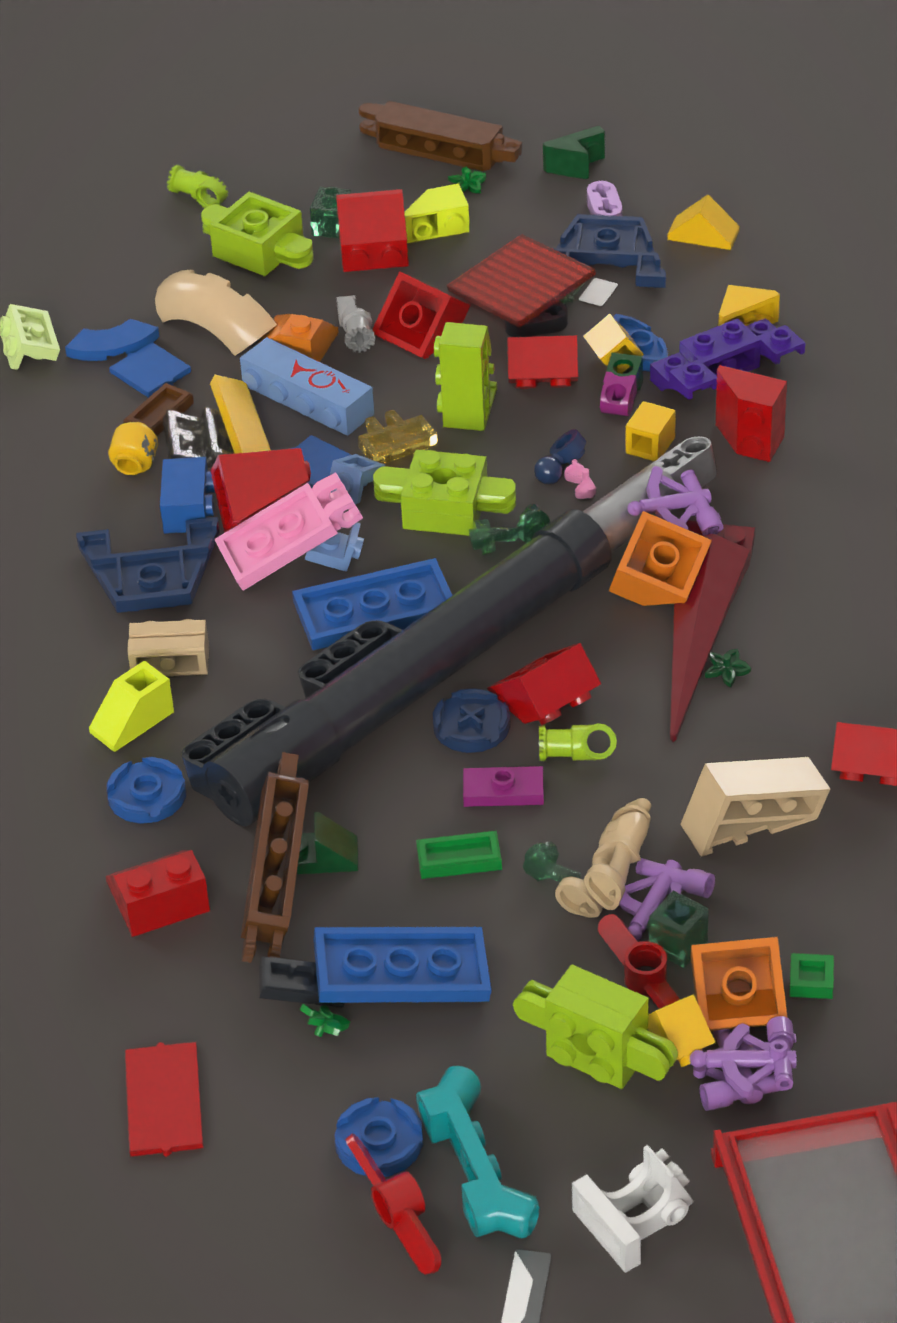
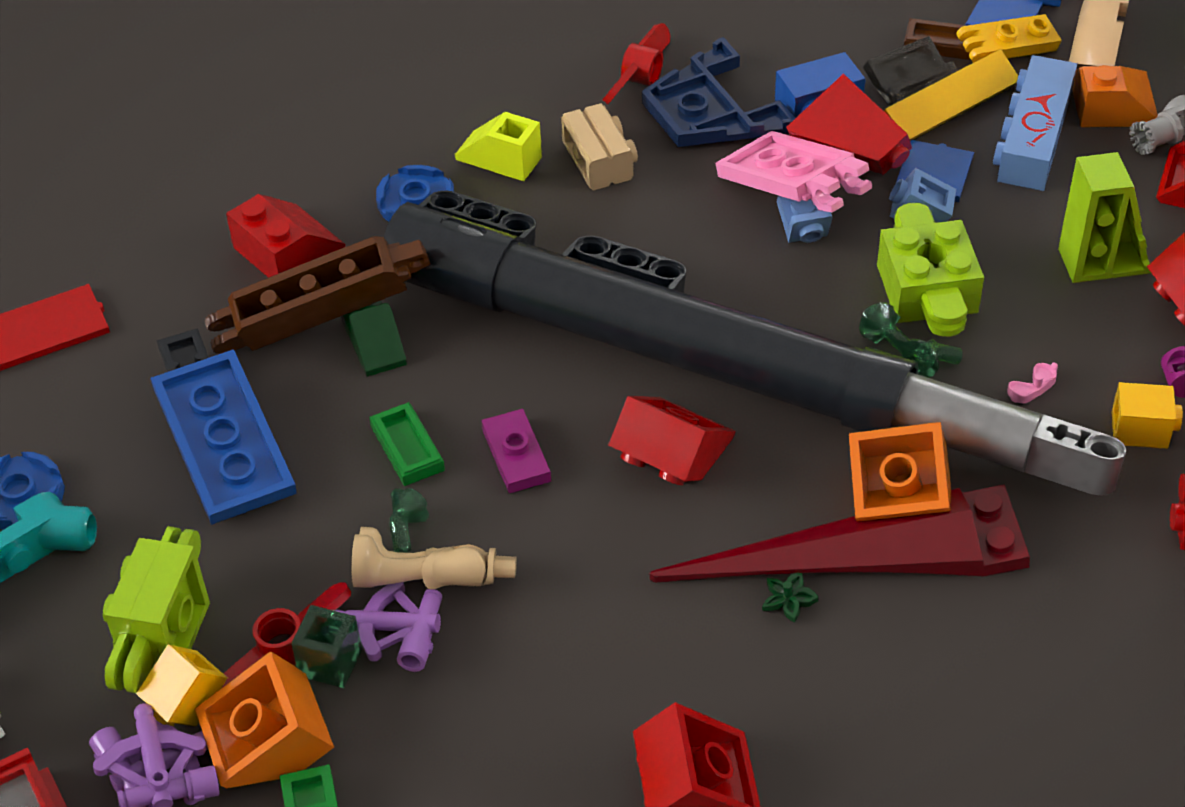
camera: 70 degrees right, 5 degrees up
(79, 597) = (642, 61): none -> red piece
(133, 448) = (865, 34): yellow head -> none
(193, 369) = (1013, 36): none -> yellow hinge
(325, 1020) = (146, 406): green plant -> none
(388, 595) = (736, 267): blue plate -> none
(397, 439) = (1000, 213): clear yellow hinge -> none
(471, 721) = (598, 394): dark blue tile -> none
(564, 450) = (1070, 354): dark blue plate -> none
(573, 742) = (593, 487): lime connector -> none
(690, 497) = (1009, 472): medium lavender piece -> none
(752, 797) = (558, 666): tan wedge -> none

